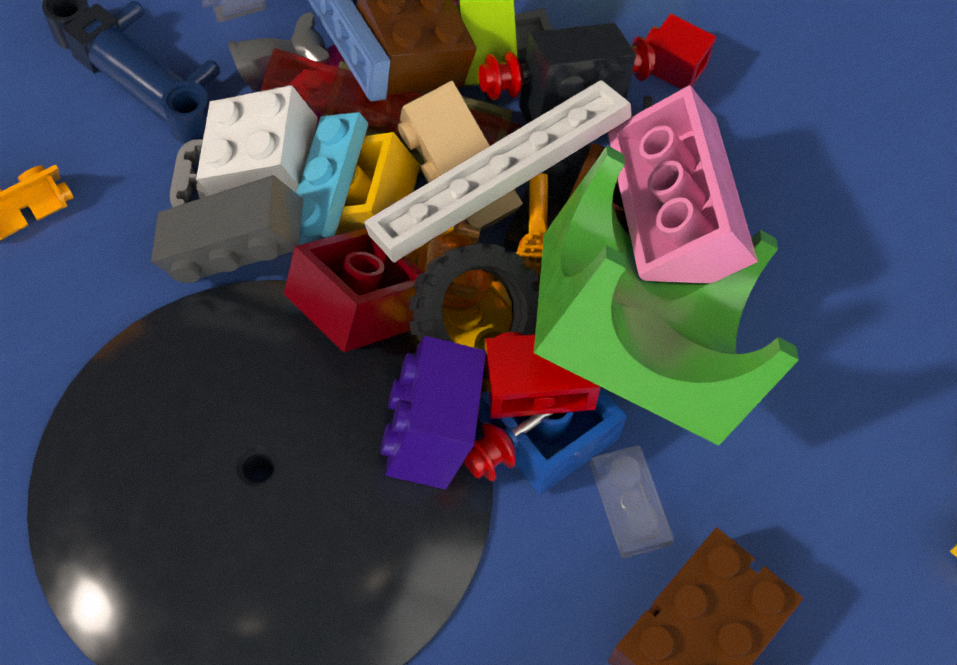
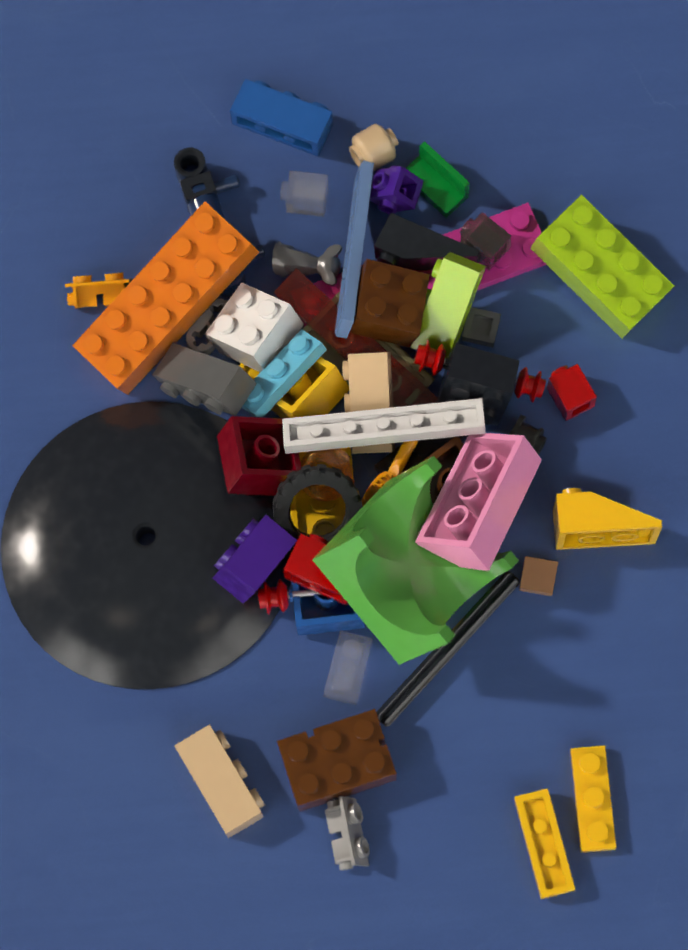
camera: 40 degrees right, 10 degrees up
(118, 161) = (165, 298): none -> orange brick
(733, 450) = (440, 657): none -> black axle
(787, 270) = (538, 576): none -> medium nougat tile
(818, 162) = (596, 522): none -> yellow slope

